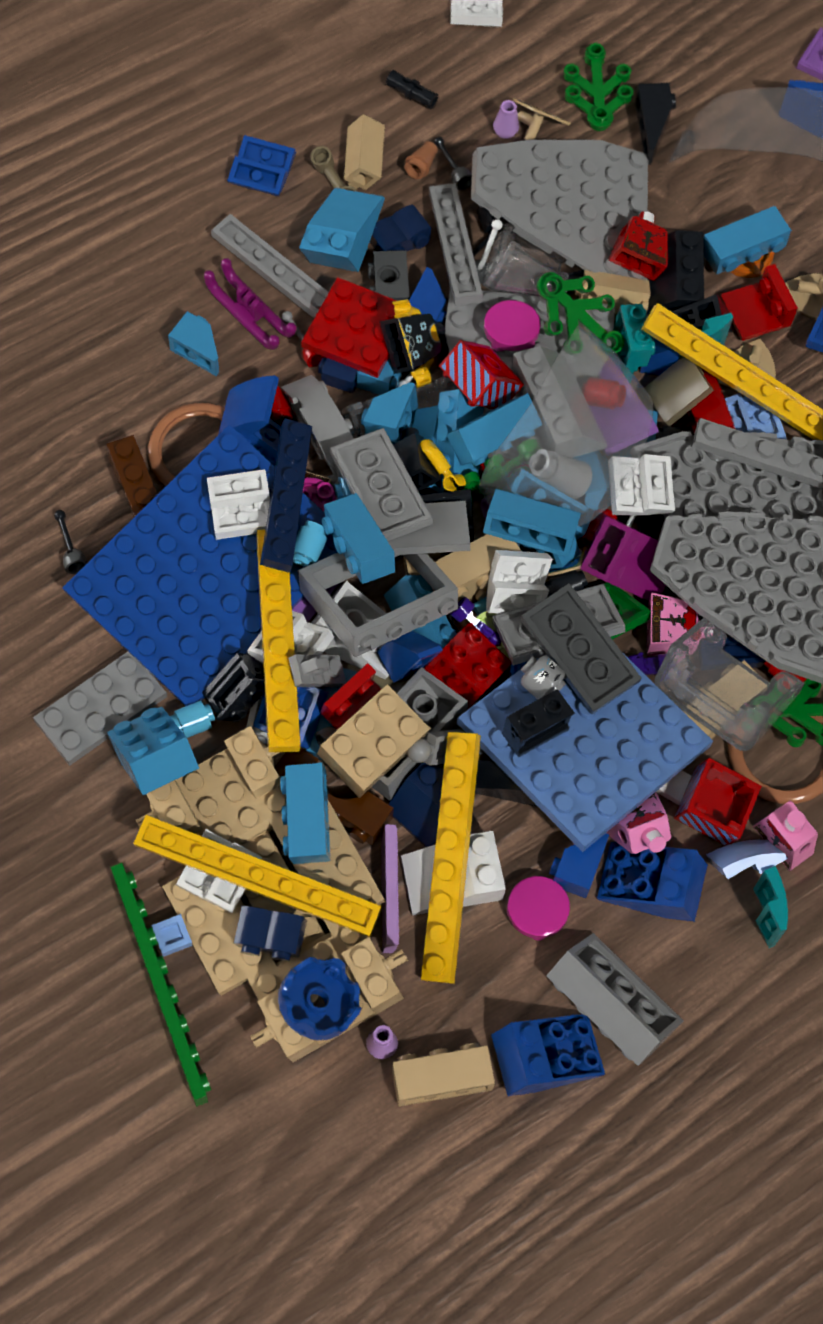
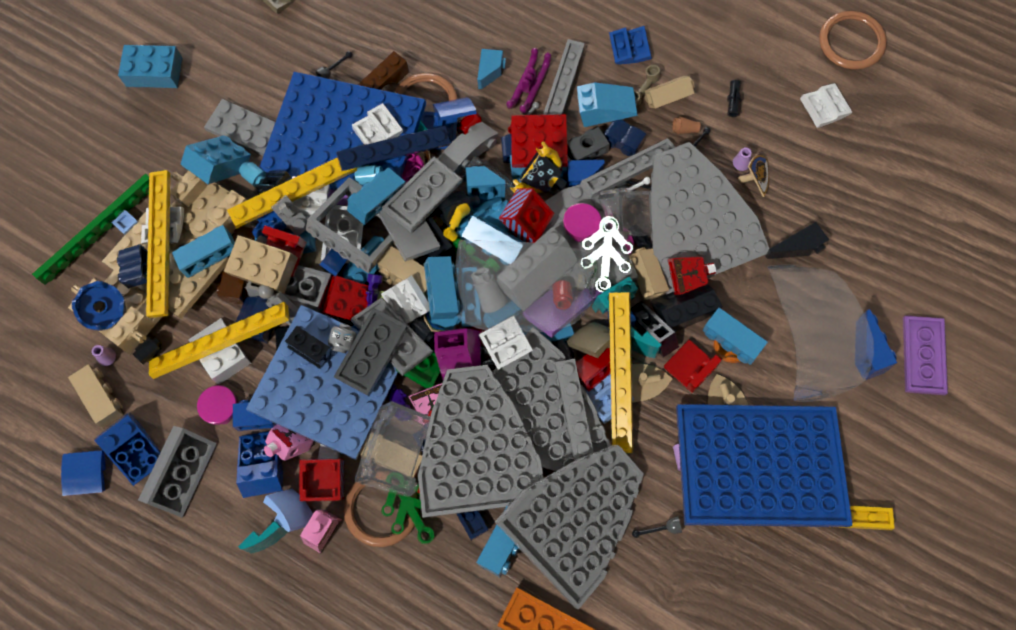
camera: 75 degrees right, 5 degrees up
(389, 870) = (194, 319): lavender tile -> none
(408, 976) = (147, 350): none -> black brick
(555, 1137) = (83, 472): none -> blue slope
(595, 58) = (804, 203): green plant -> none

